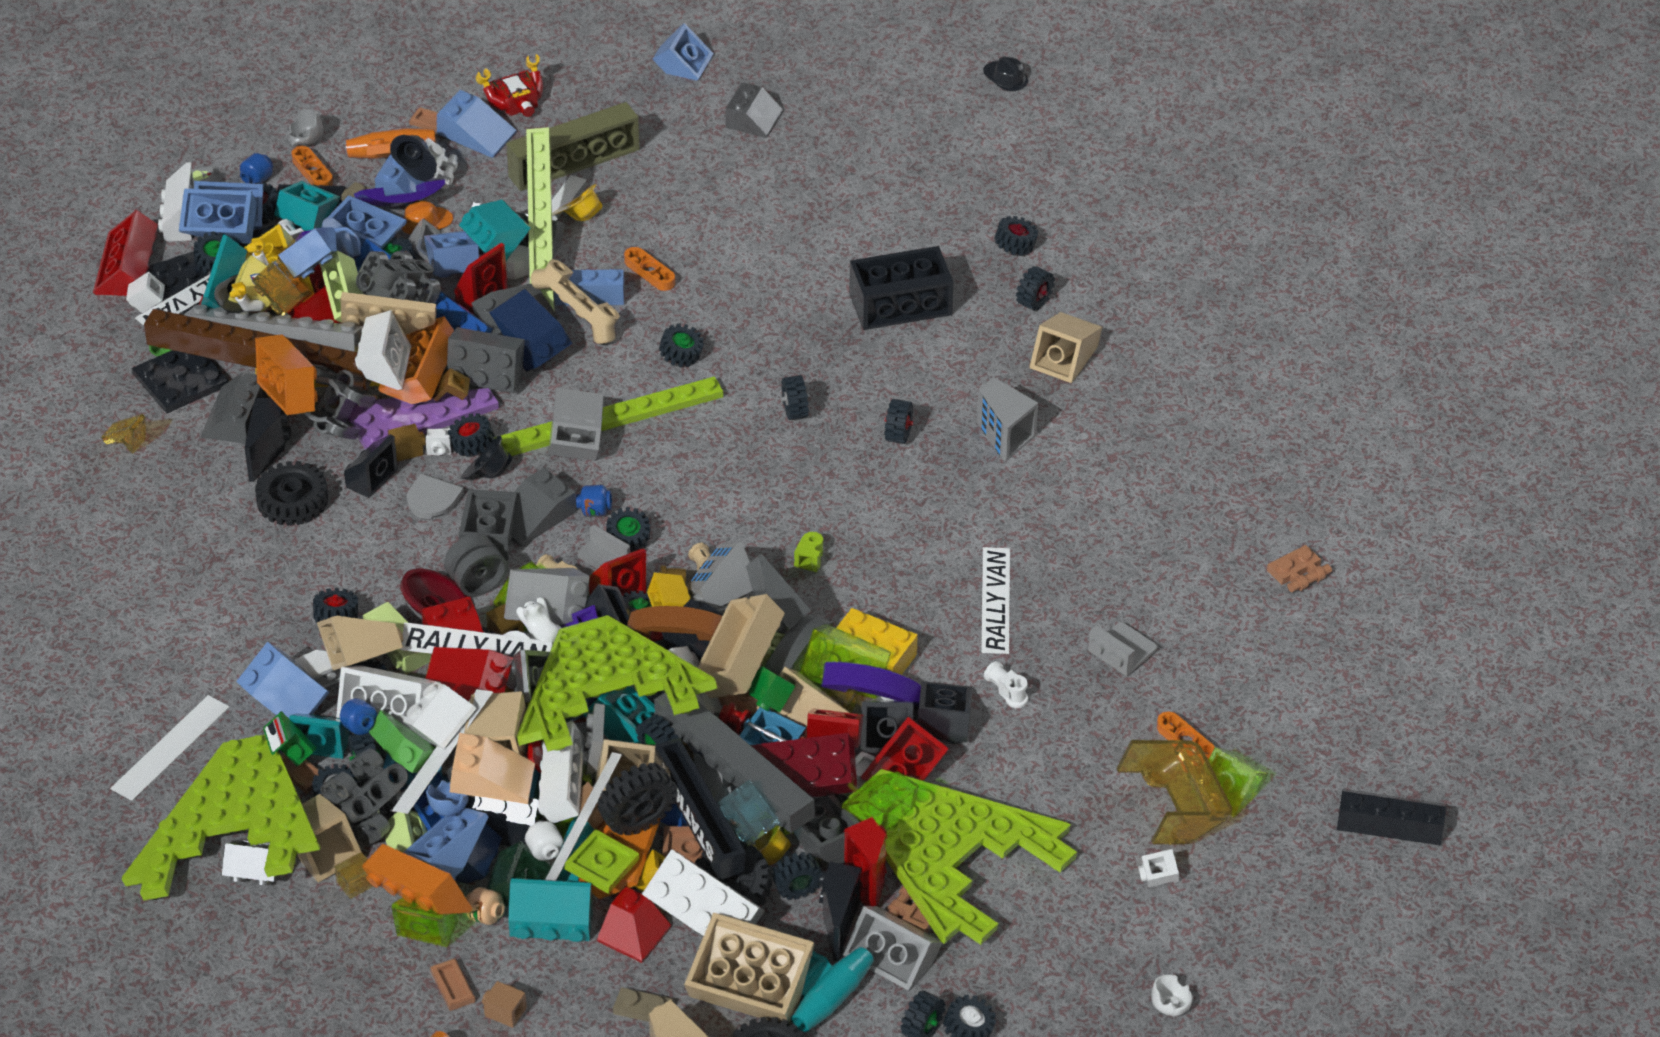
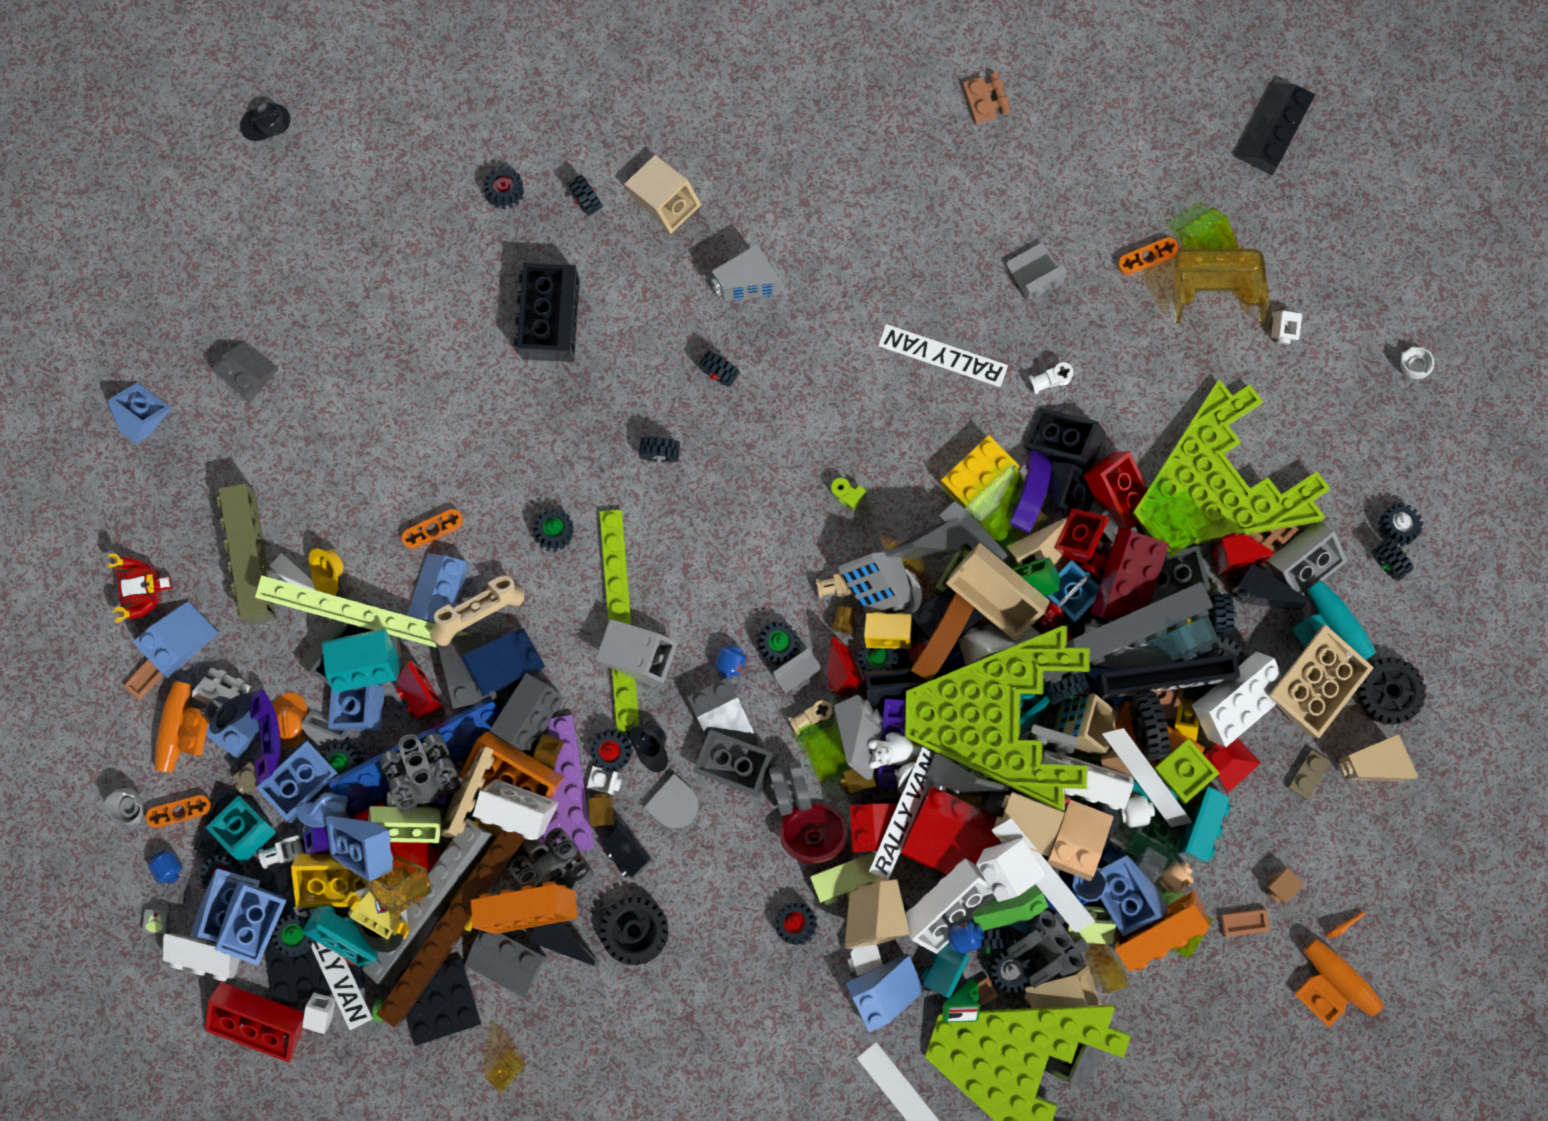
camera: 70 degrees left, 35 degrees up
(488, 858) = (1151, 864): none -> clear panel

